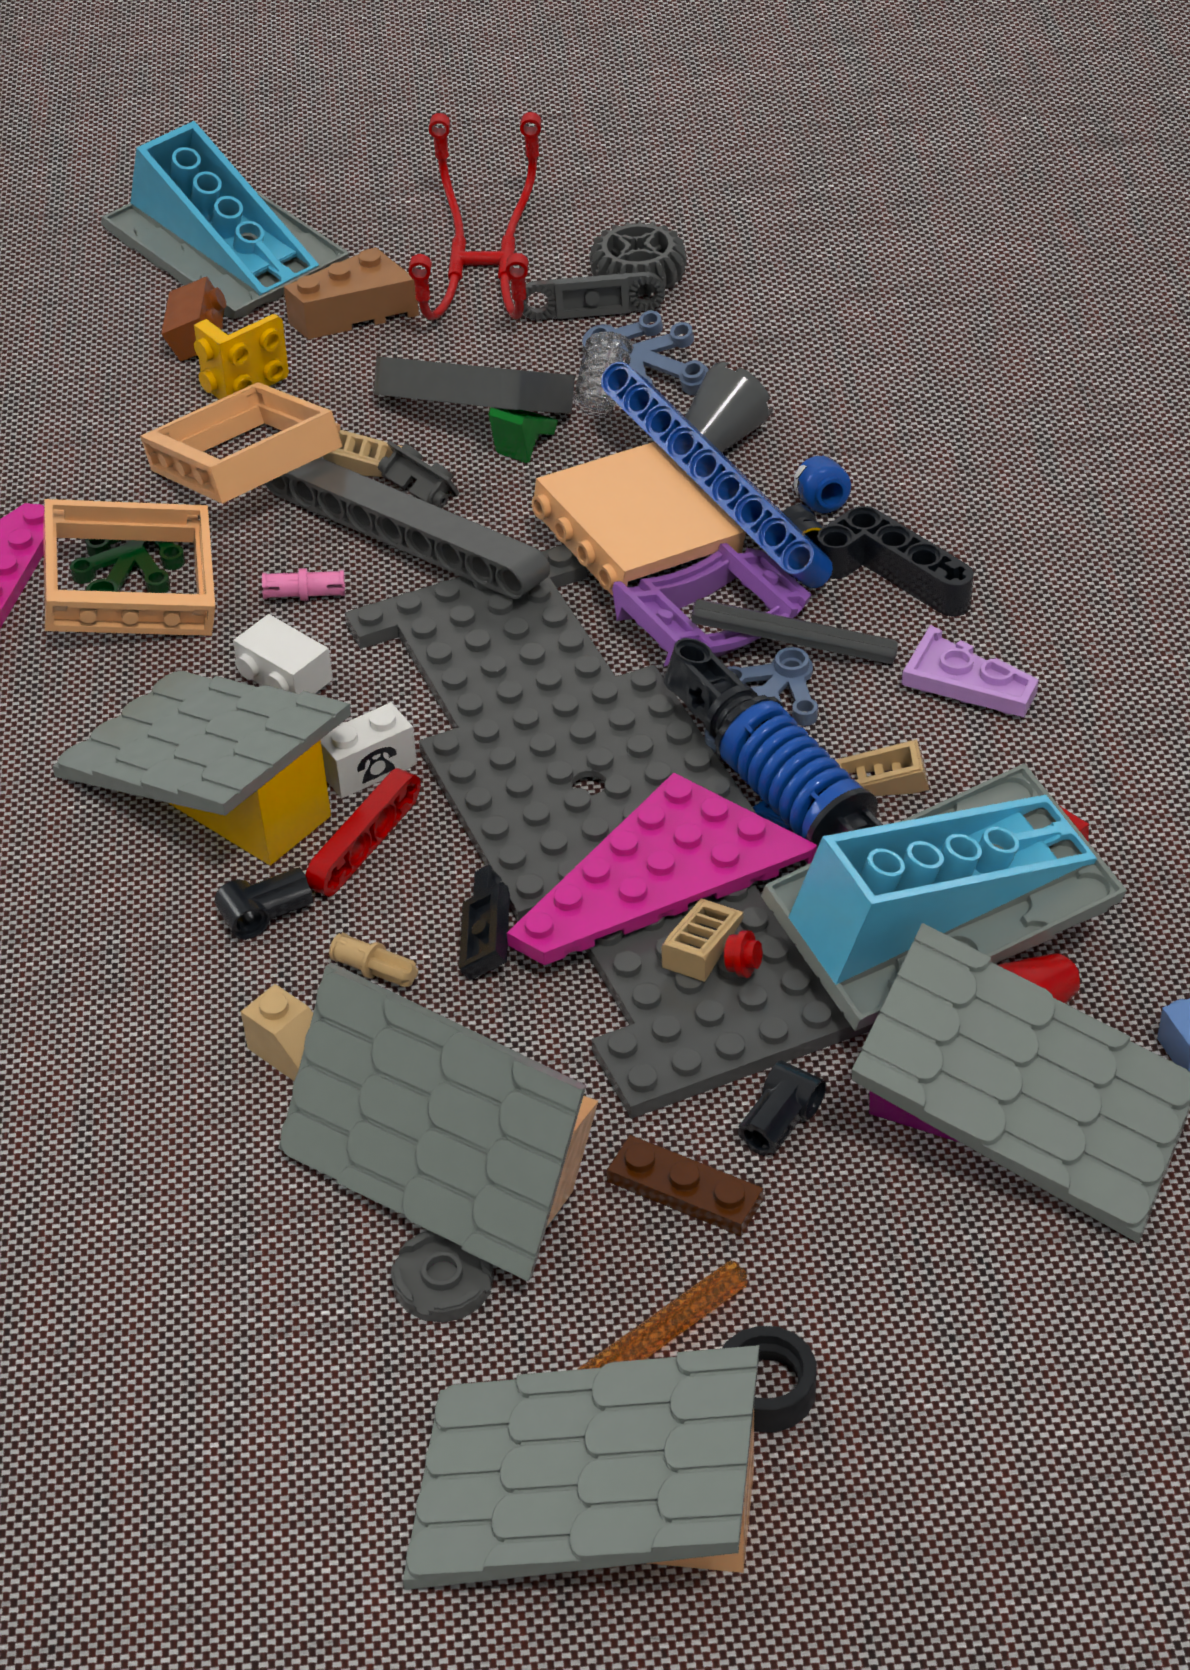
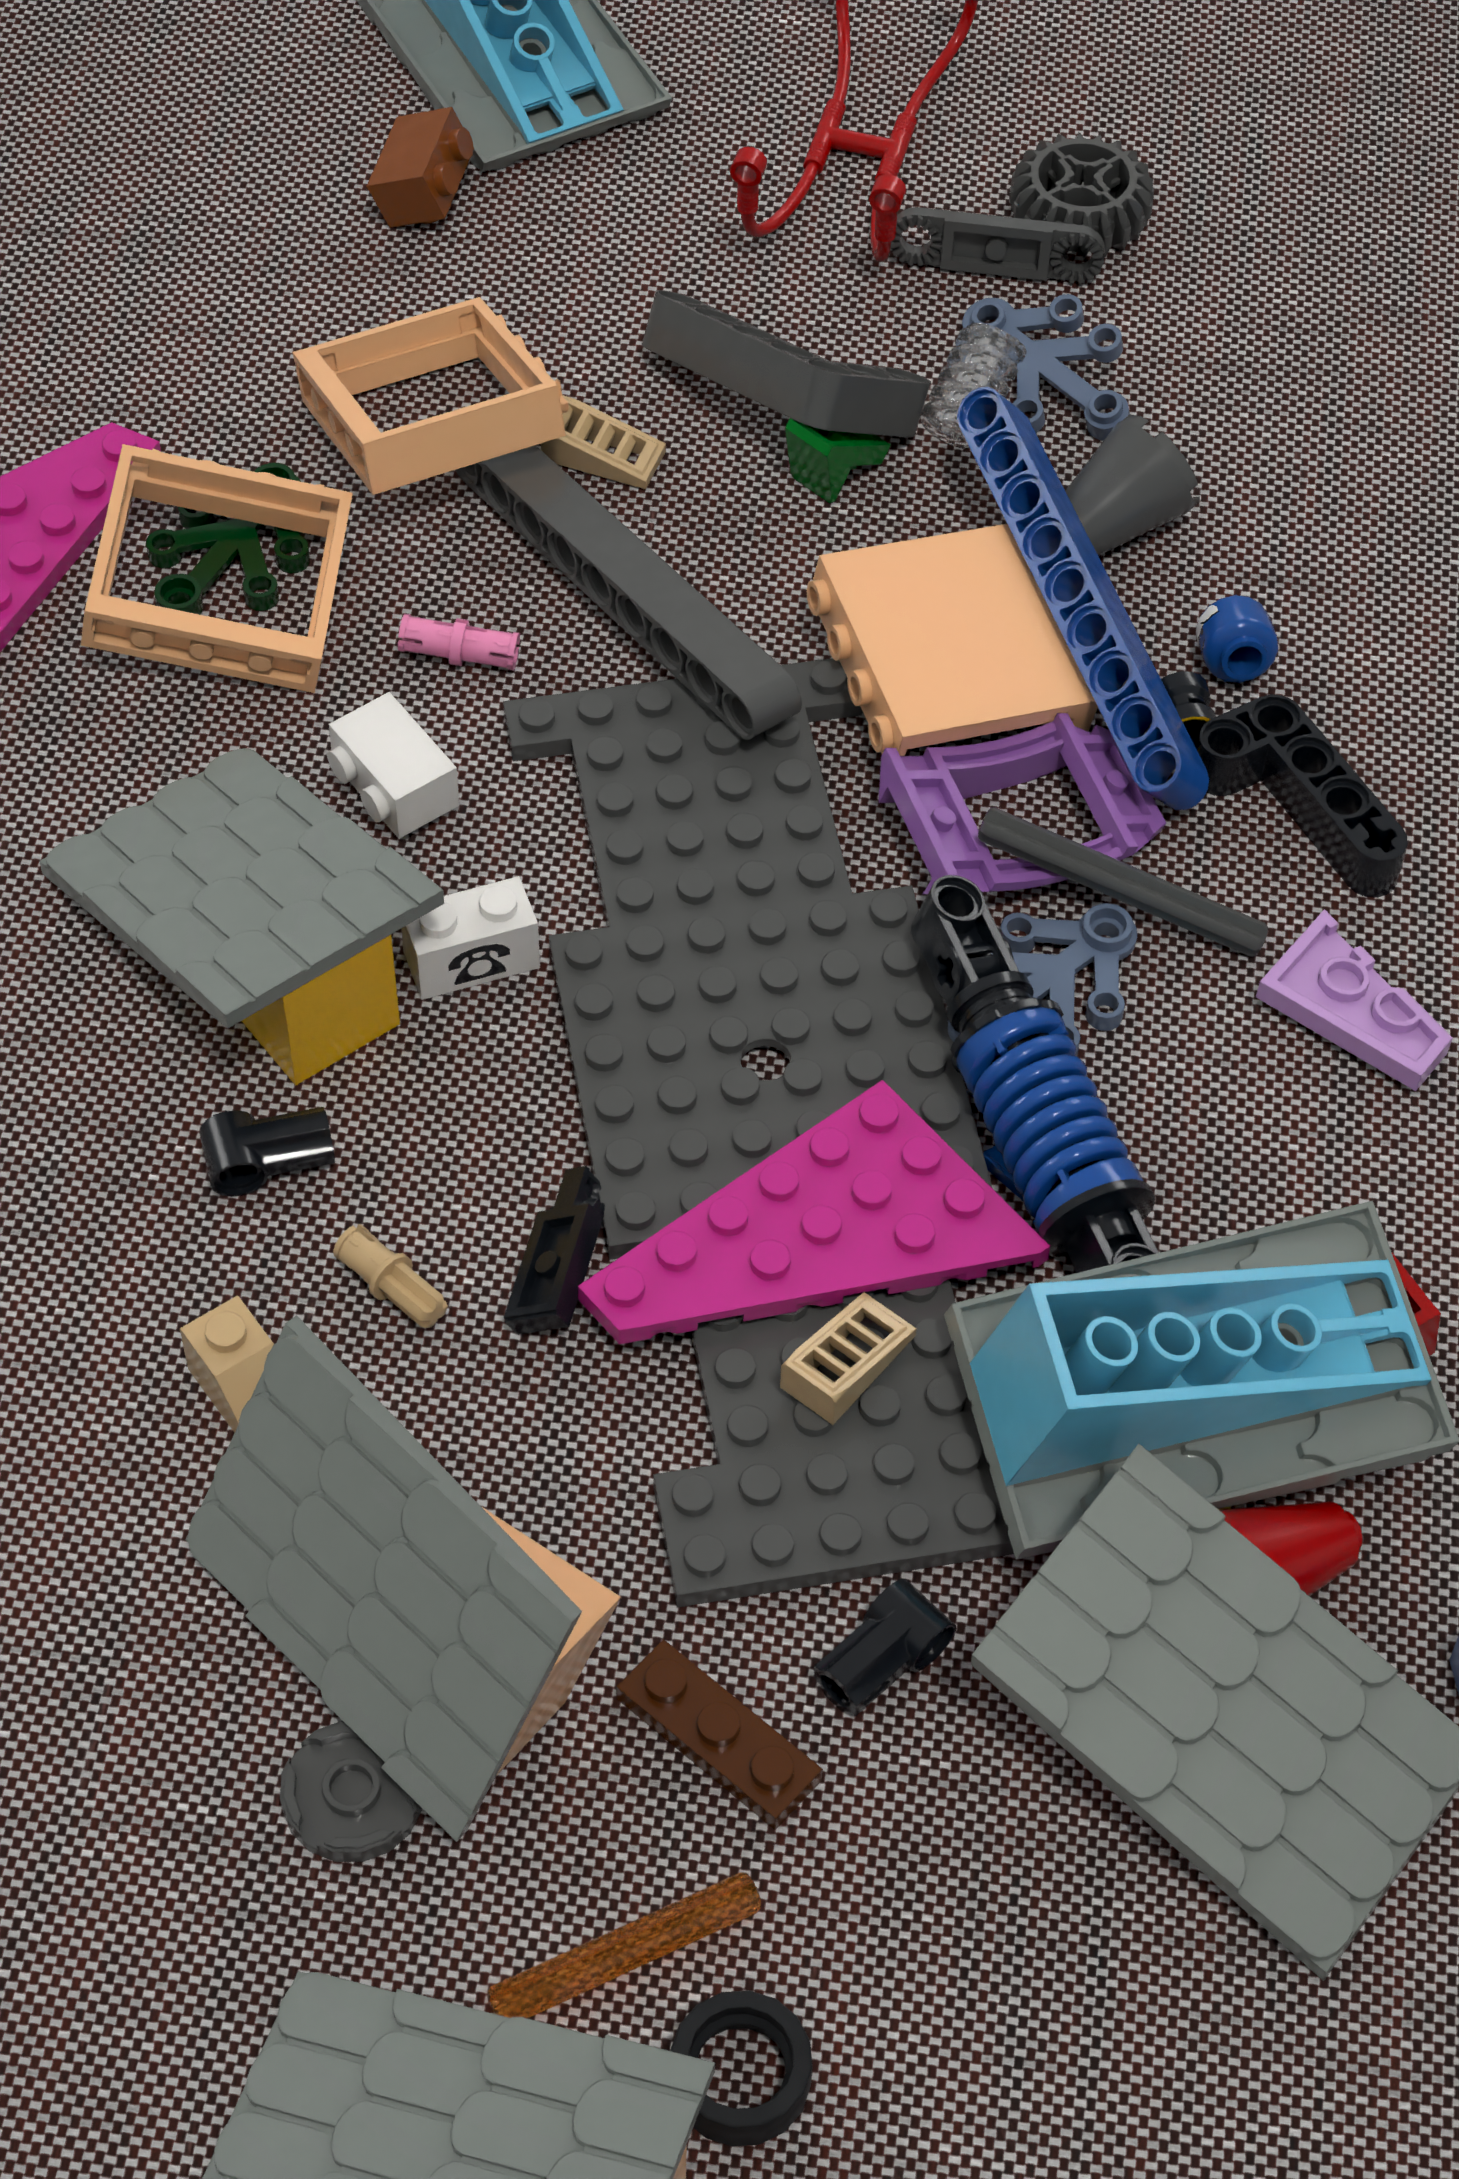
camera: 10 degrees right, 10 degrees up
(241, 357) = (468, 256): yellow bracket -> none
(350, 293) = (649, 170): medium nougat wedge -> none
(363, 832) = (431, 1068): red beam -> none
(407, 464) = (650, 480): dark grey hinge -> none
(743, 953) = (894, 1399): red plate -> none
(903, 758) = (1201, 1158): tan slope -> none

